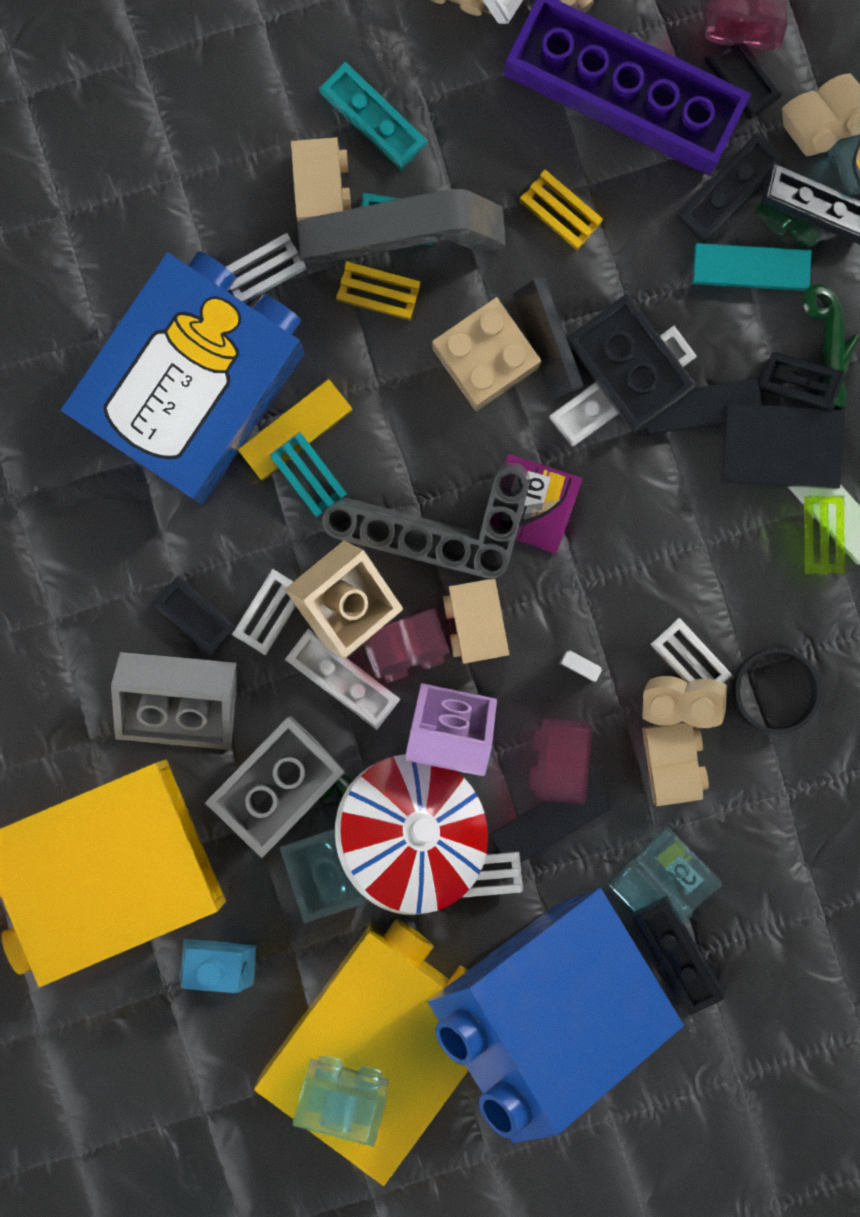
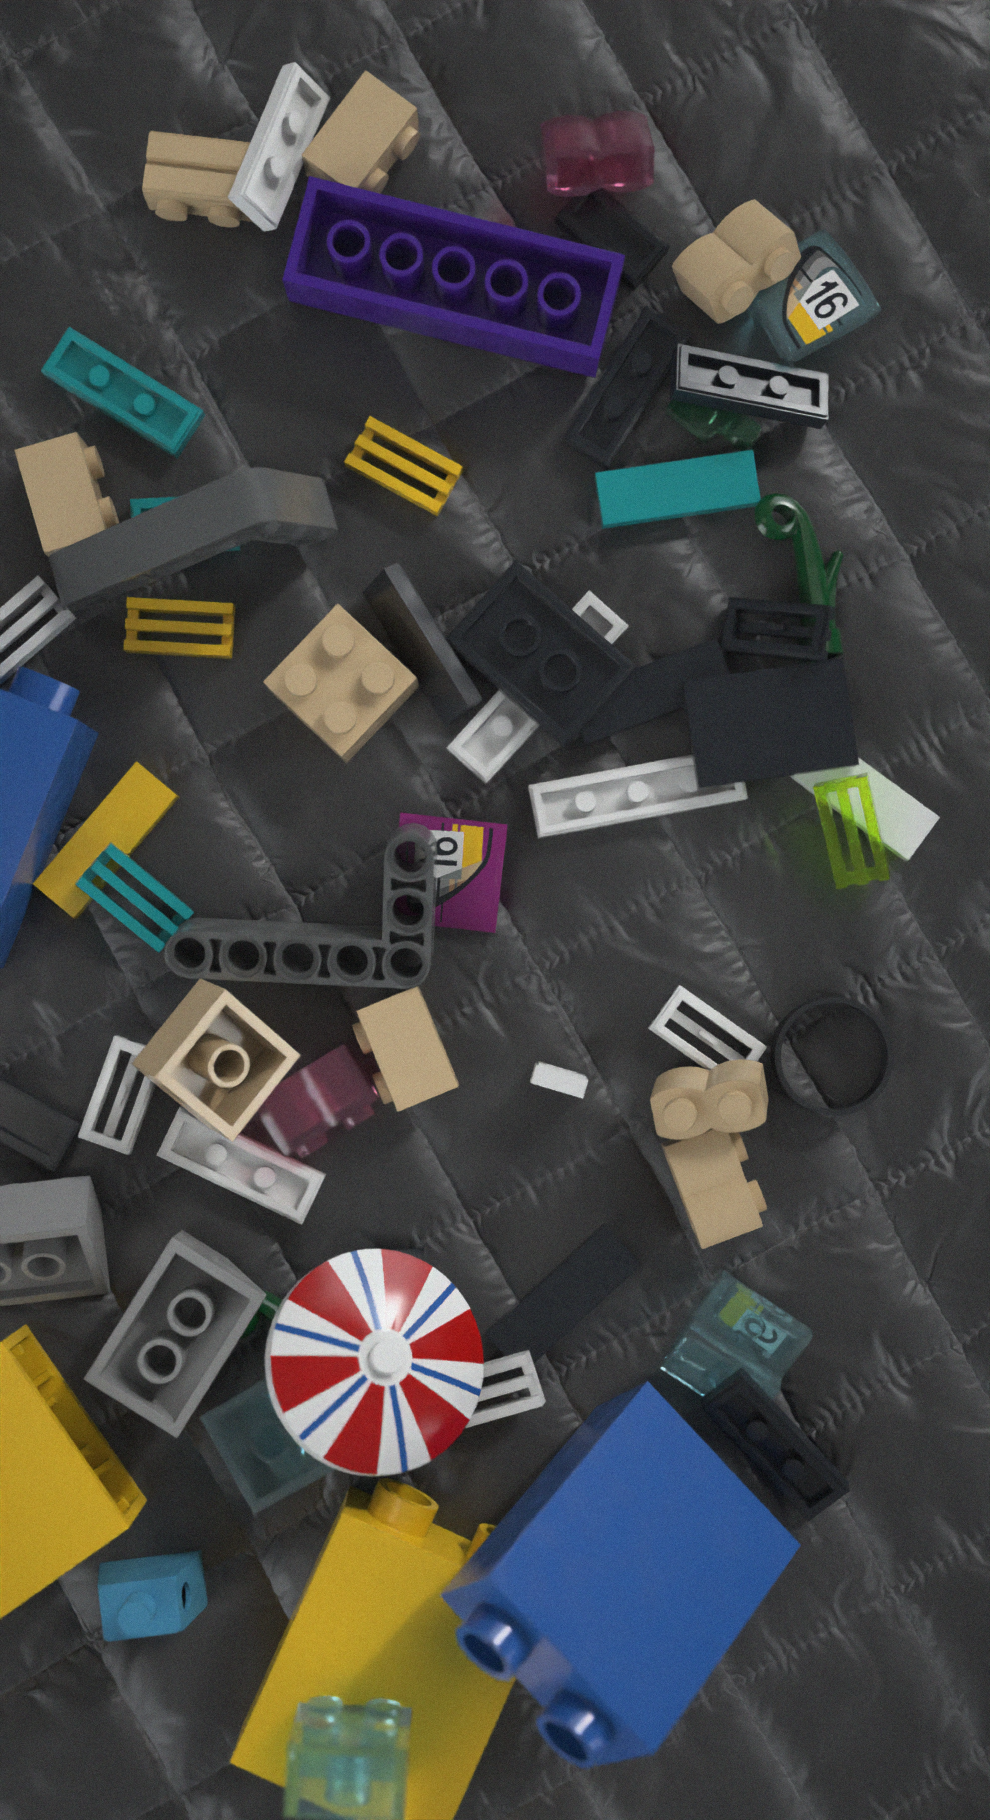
camera: 15 degrees left, 0 degrees up
(452, 730) = (398, 1208): lavender brick -> none
(562, 762) = (562, 1215): clear pink brick -> none
(668, 476) = (623, 796): none -> white tile

